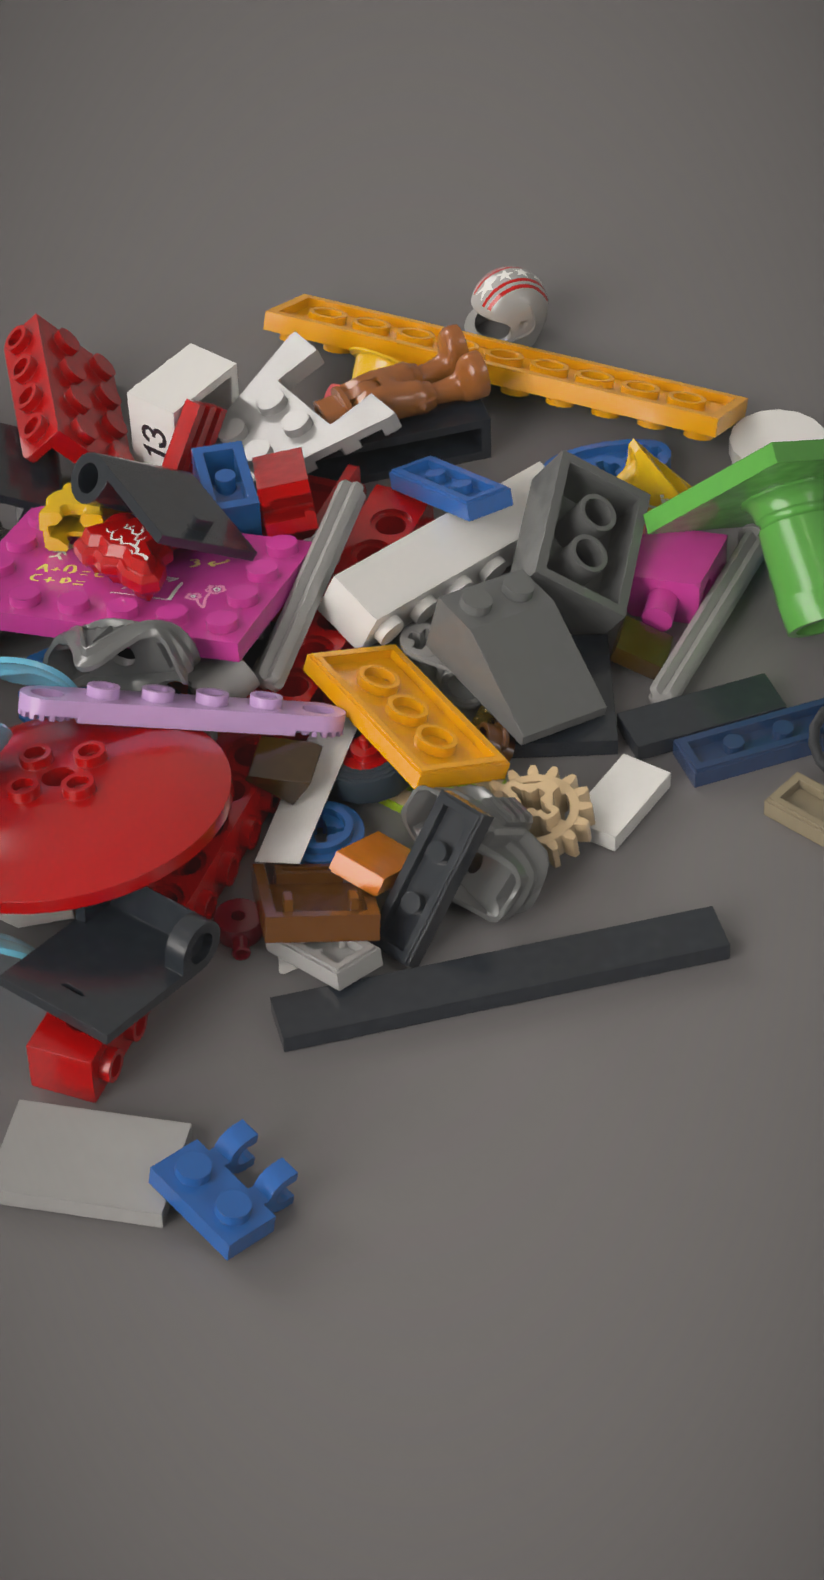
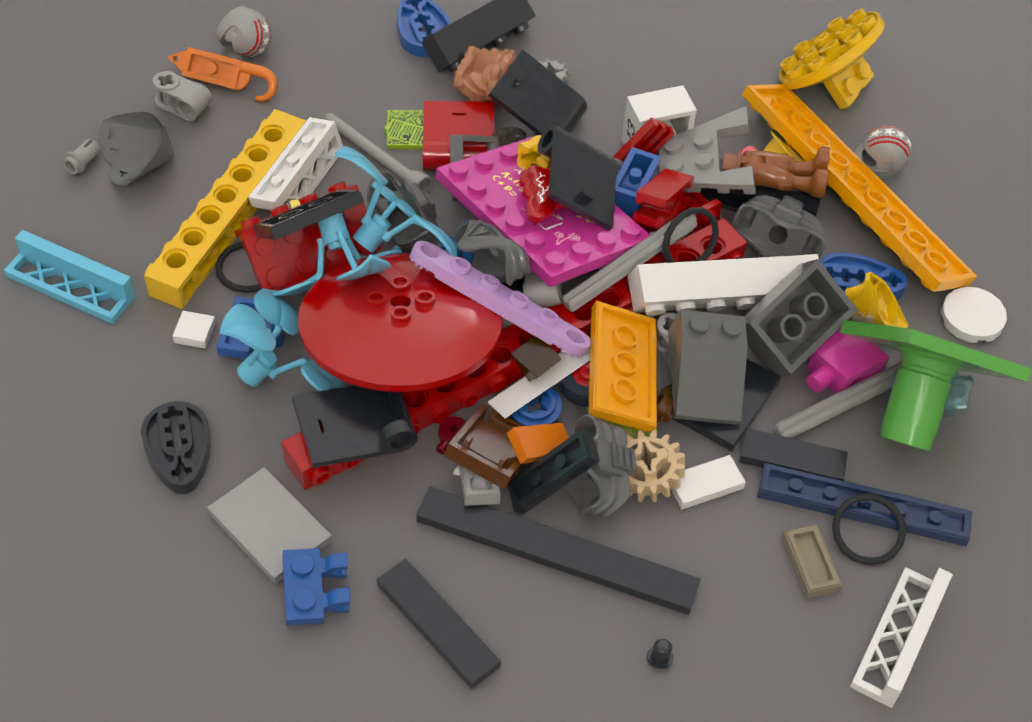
camera: 30 degrees right, 10 degrees up
(63, 394) = (603, 83): red bracket -> none
(343, 506) = (699, 210): none -> black piece
(348, 222) = (835, 57): none -> yellow bracket
(425, 1142) = (439, 623): none -> black tile
(450, 488) = (751, 245): blue tile -> none
(454, 435) = (763, 212): none -> dark grey piece
(641, 647) = (792, 395): dark brown tile -> none
(736, 1014) = (660, 654): none -> black piece

